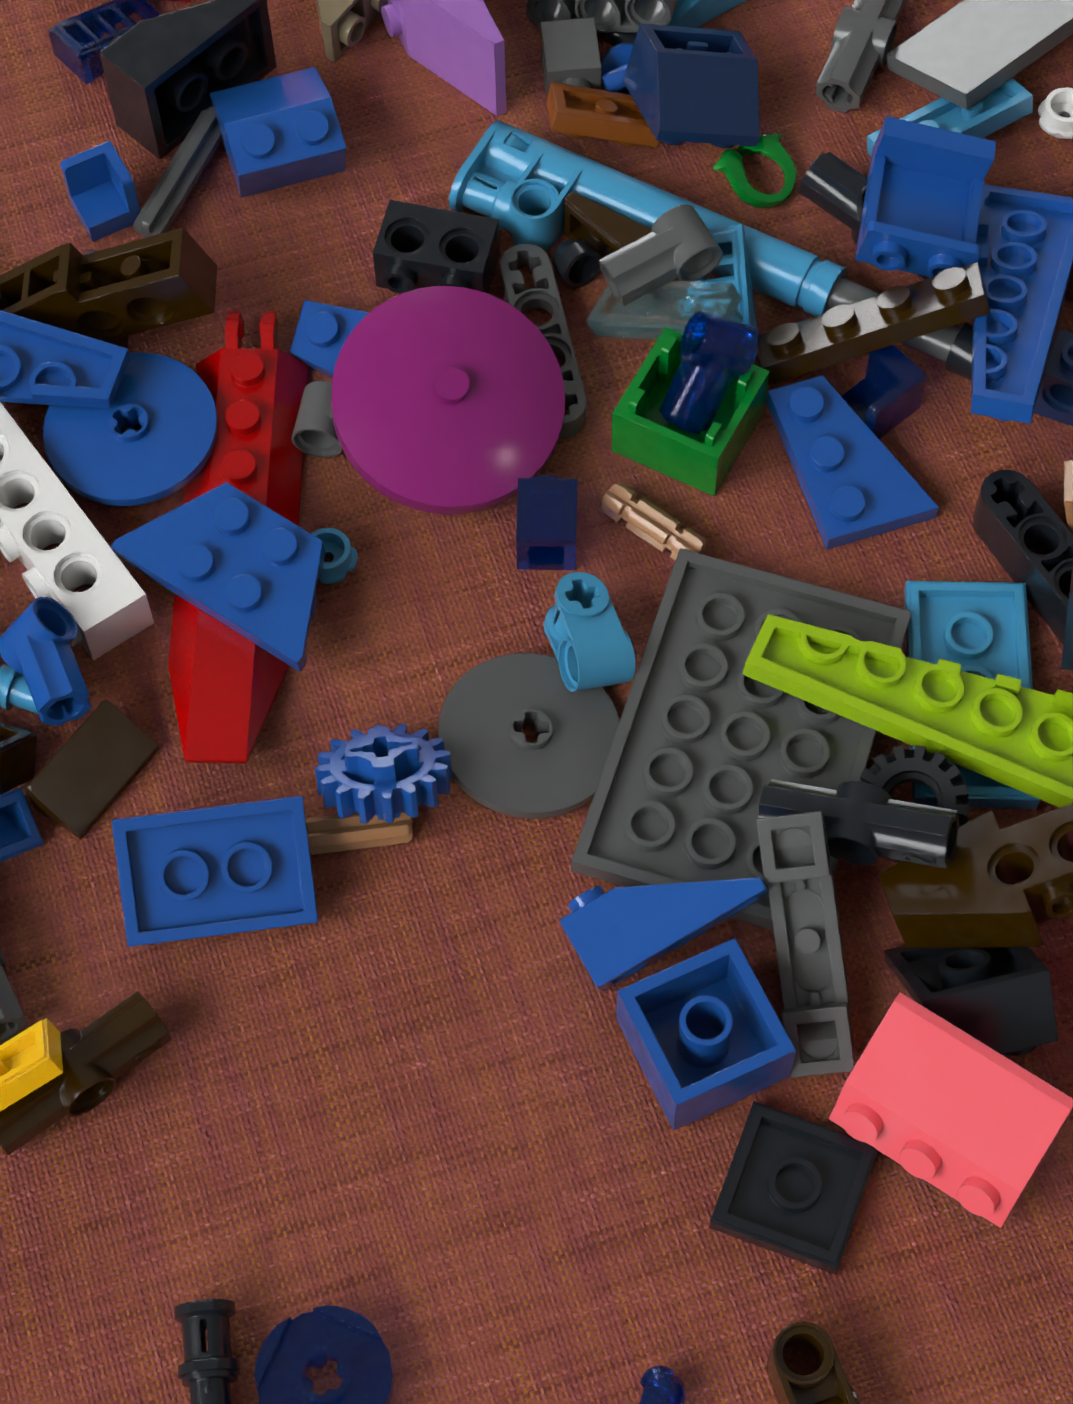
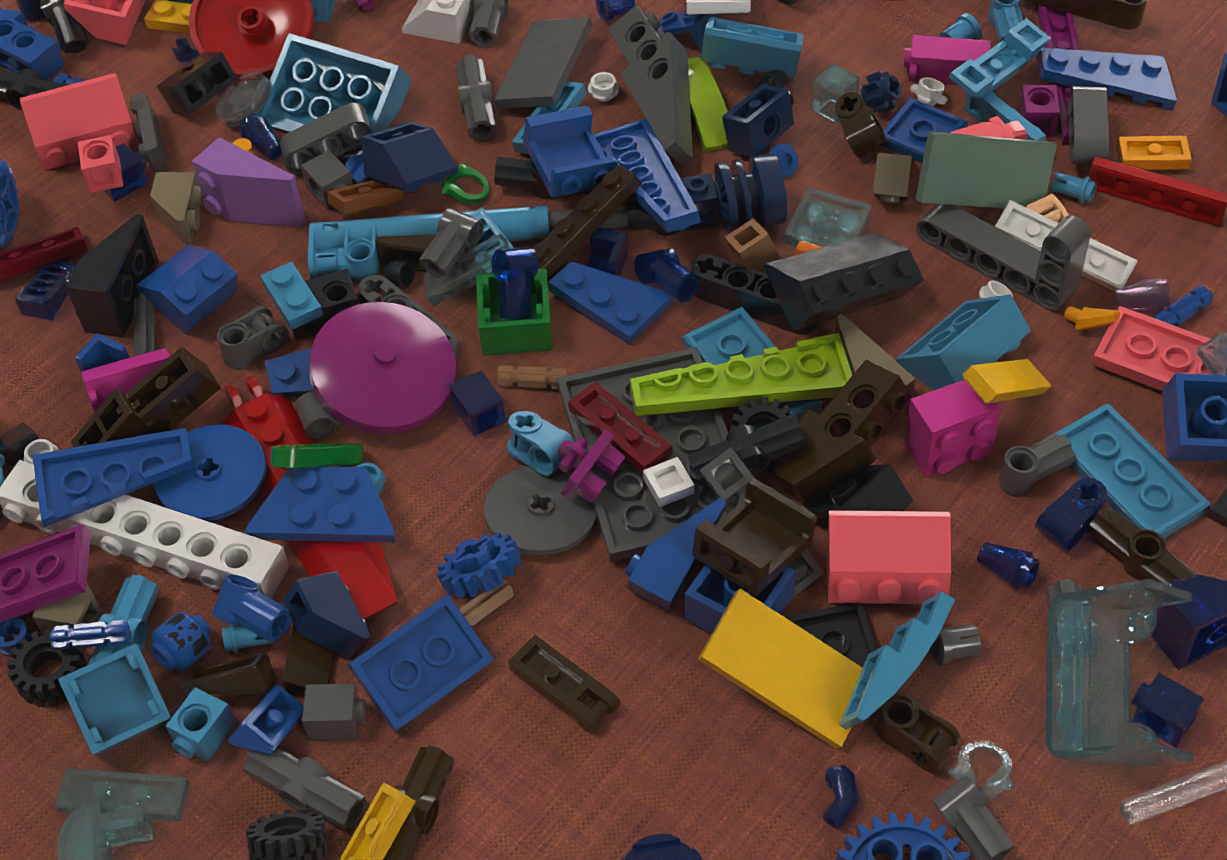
camera: 30 degrees left, 10 degrees down
(64, 870) = (333, 712): none -> dark grey brick
(103, 221) = (121, 374): none -> dark pink brick
(139, 725) = (326, 614): none -> dark blue slope
(273, 484) = (316, 455): none -> green beam
(309, 253) = (250, 337): none -> dark grey piece
(385, 1012) = (563, 683): none -> dark brown plate
(394, 222) = (291, 295): none -> dark azure plate
(600, 729) = (582, 479): none -> magenta hips
(688, 1190) = (783, 666): none -> yellow tile
(708, 680) = (632, 435): none -> dark red plate
(719, 803) = (668, 481): none -> white plate
(767, 971) = (755, 538): none -> dark brown panel
(829, 1283) = (893, 664): none -> dark azure slope
(946, 465) = (666, 271): none -> clear blue piece
(953, 1291) = (956, 643): none -> dark grey bush

